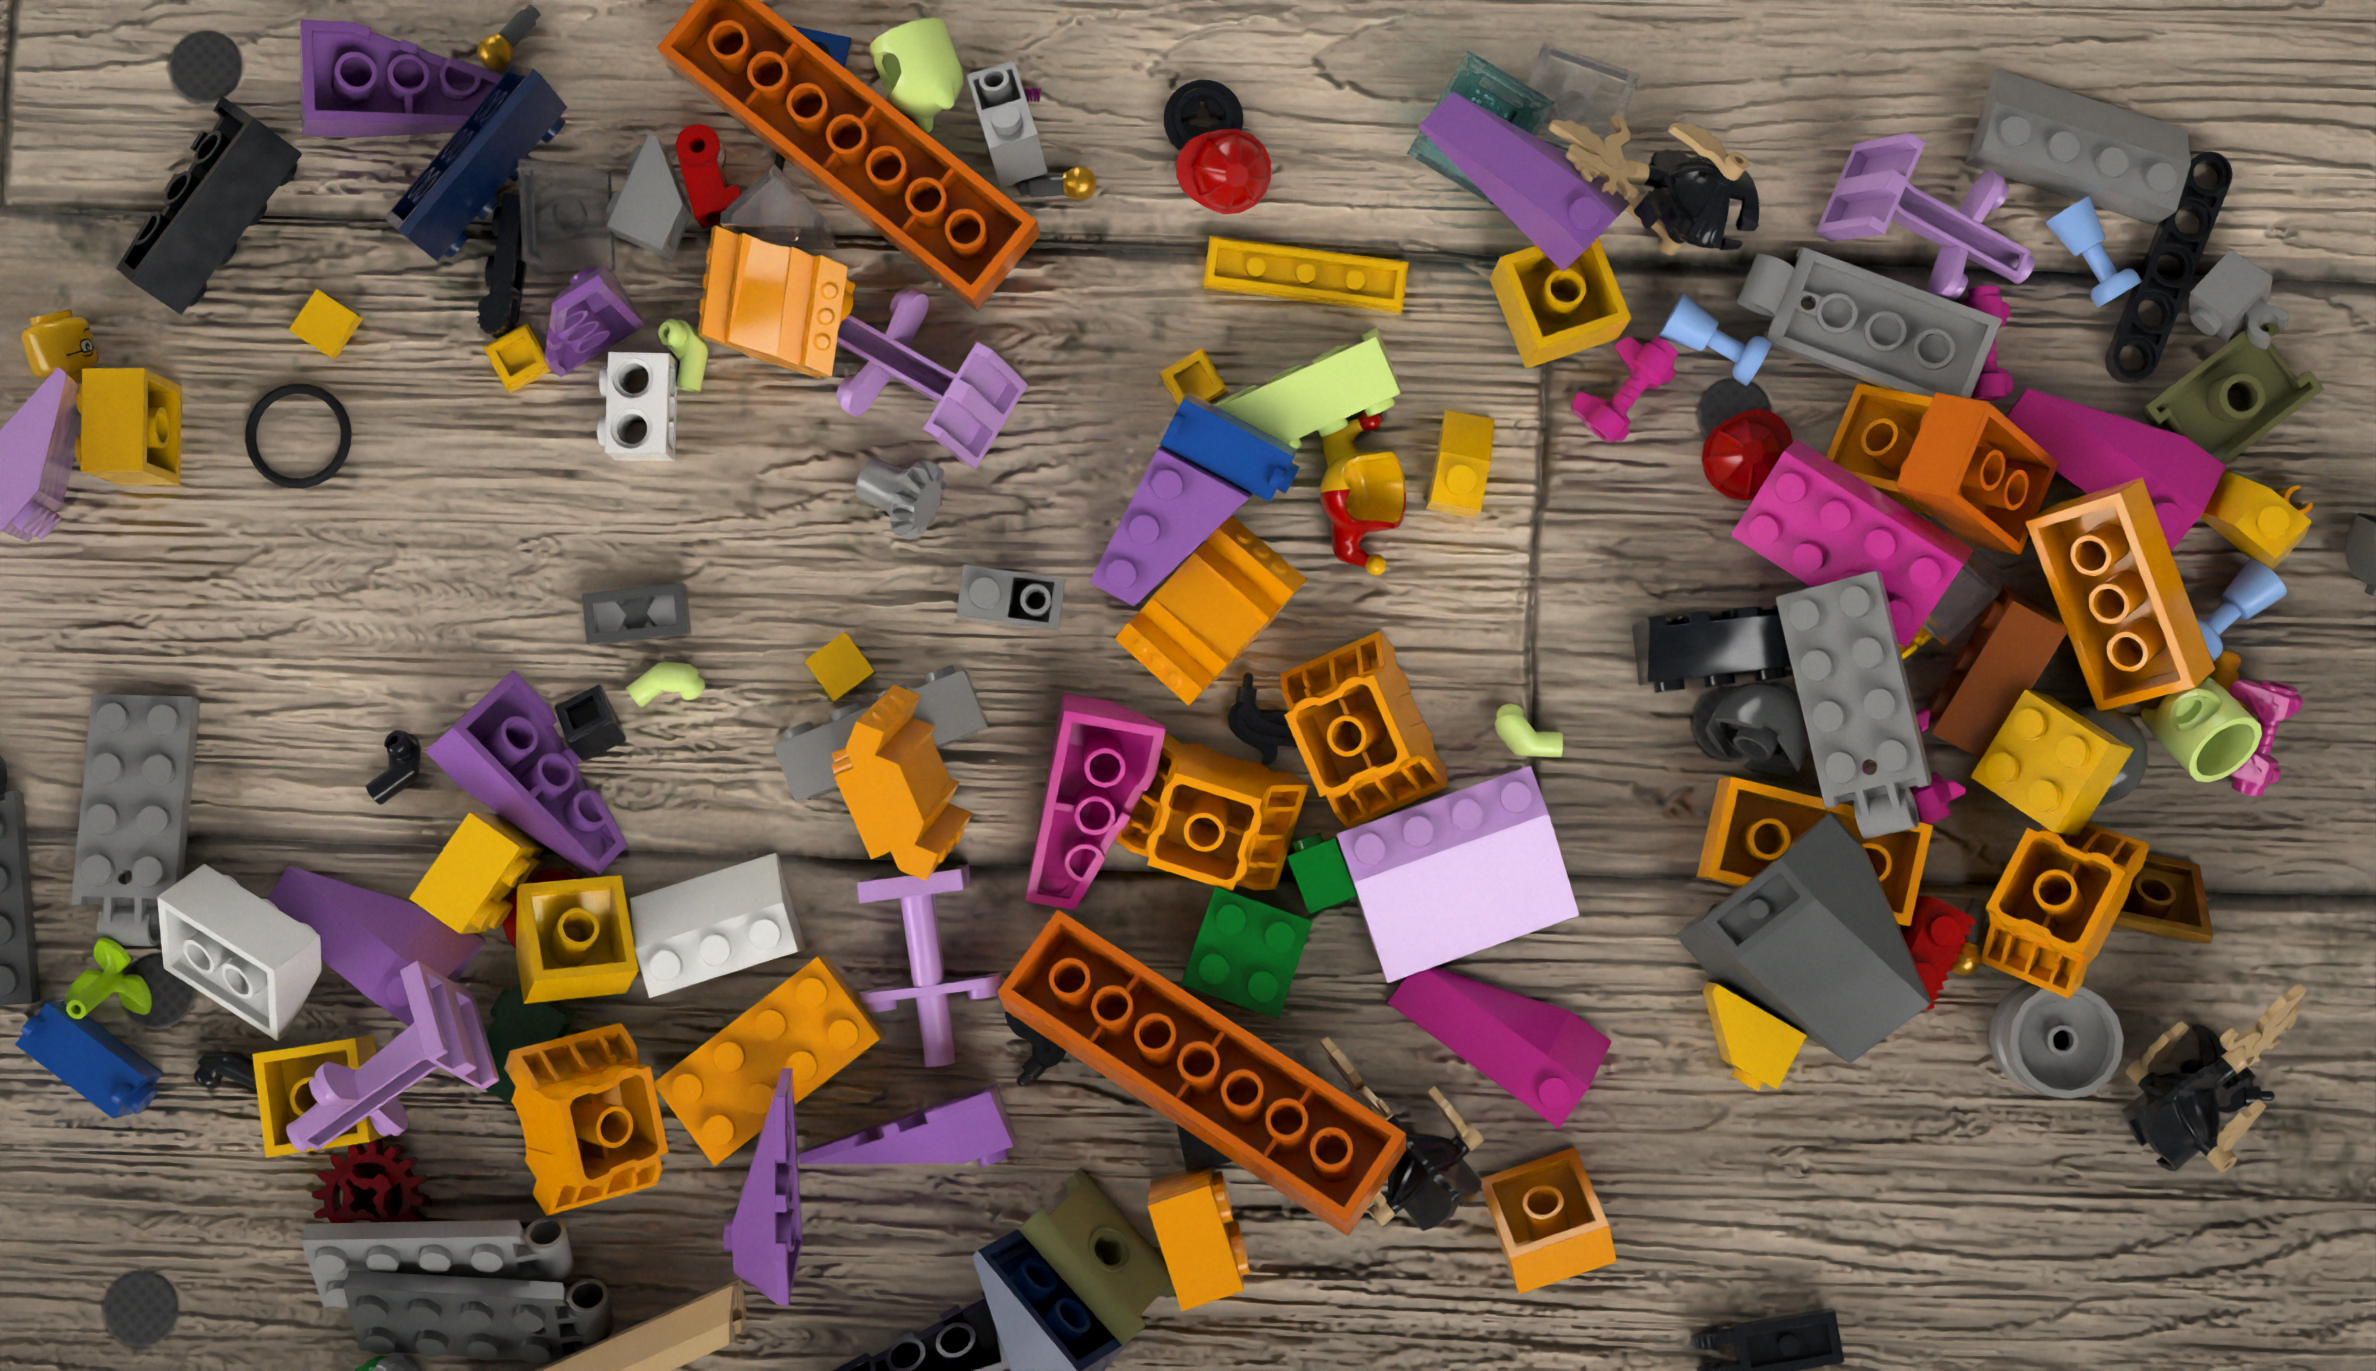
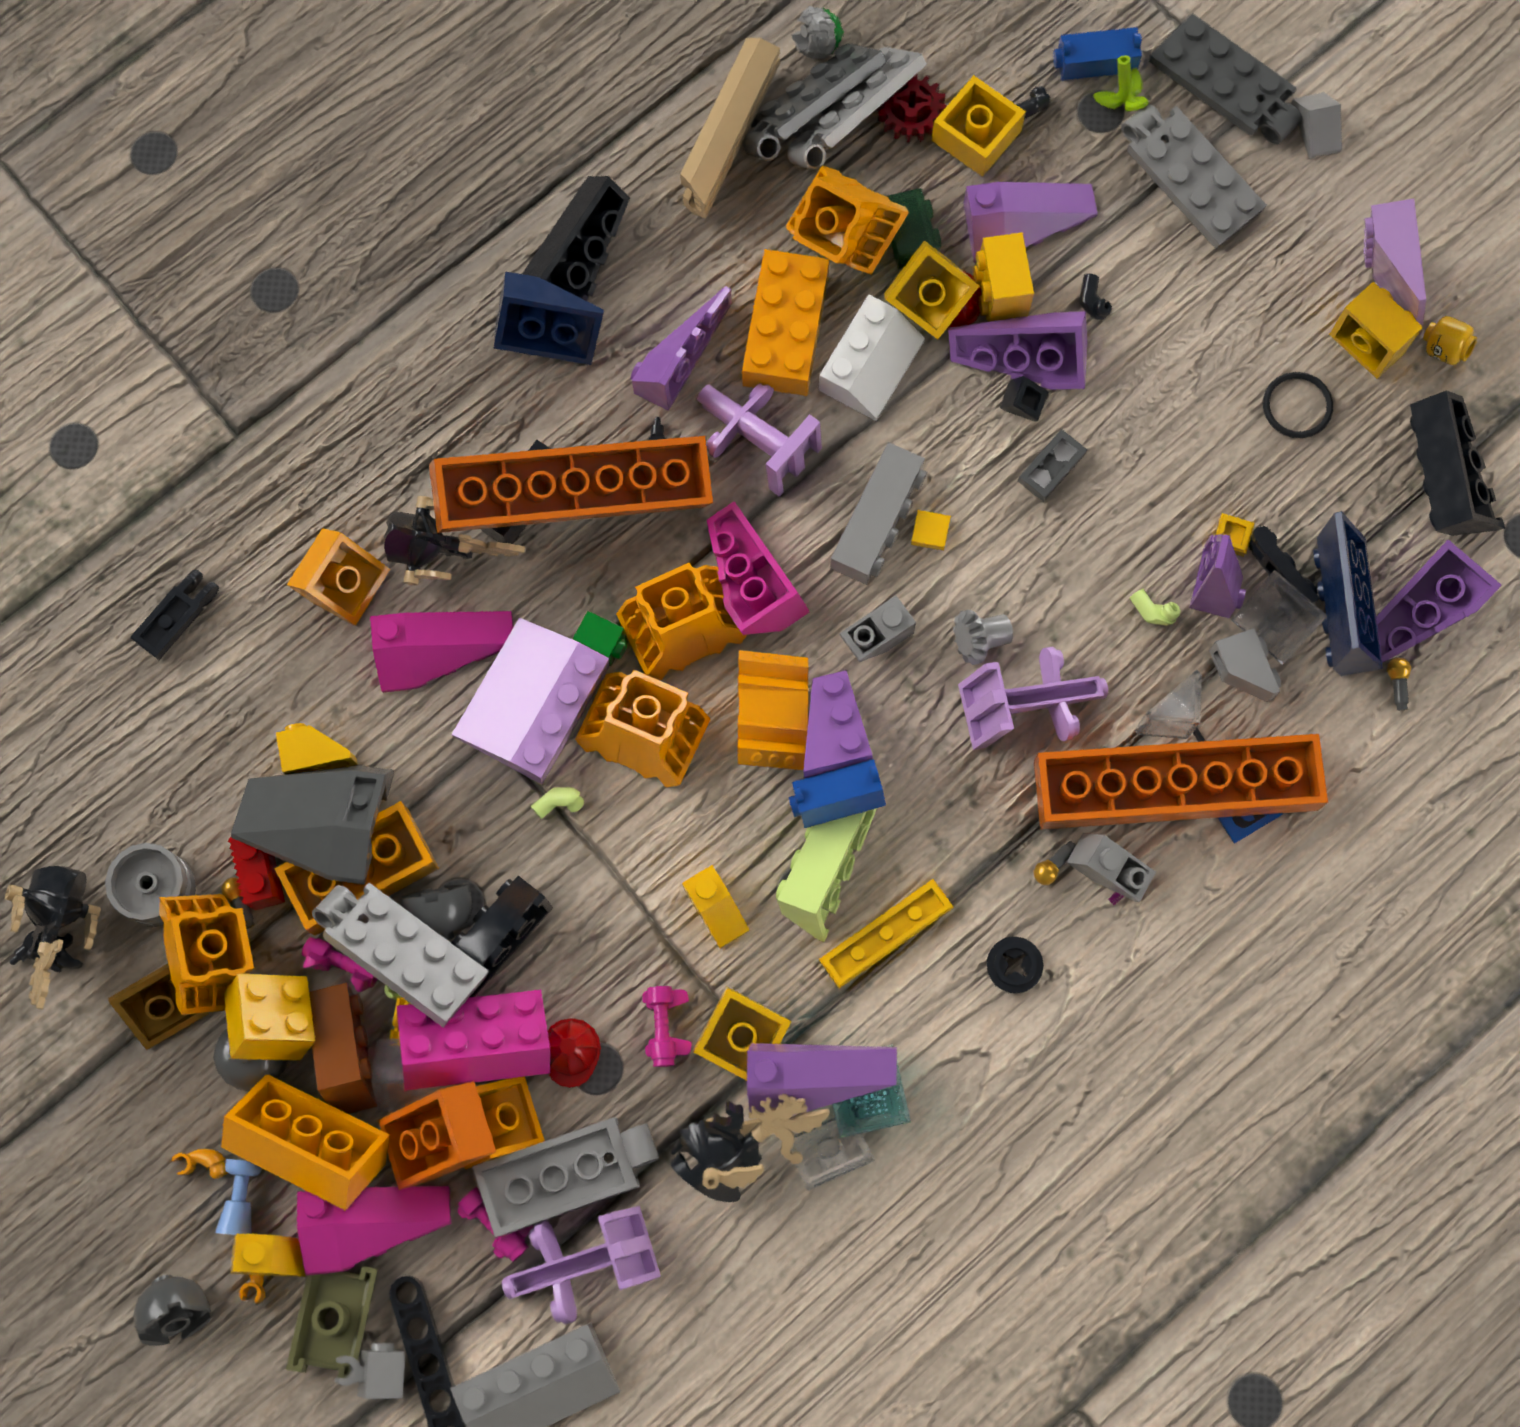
camera: 140 degrees right, 10 degrees down
(238, 949) = (1080, 154): white slope -> none
(325, 324) = (1340, 466): yellow tile -> none
(443, 1035) = (943, 188): lavender piece -> none
(653, 405) = (1141, 567): white brick -> none
(667, 677) = (1007, 451): yellowish green arm -> none
(702, 165) = (1233, 702): red leg -> none
(767, 1219) = (717, 252): medium lavender wedge -> none
(773, 302) = (1132, 664): light orange slope -> none
(899, 786) = (842, 484): light orange slope -> none
(919, 69) = (1179, 850): yellowish green piece -> none
(1131, 1268) = (523, 383): olive piece -> none
(1193, 375) = (891, 826): yellow tile -> none
(1197, 1242) = (503, 404): light orange brick -> none
(1224, 170) = (978, 947): red piece -> none
(1246, 952) = (602, 568): green piece -> none
(1257, 728) = (701, 684): black piece -> none
(1360, 493) = (750, 841): yellow piece -> none
(1696, 329) = (655, 1090): light blue piece -> none
(2082, 233) = (492, 1335): light blue piece -> none
(2204, 730) = (198, 1115): yellowish green piece -> none
(2271, 703) = (175, 1161): dark pink piece -> none

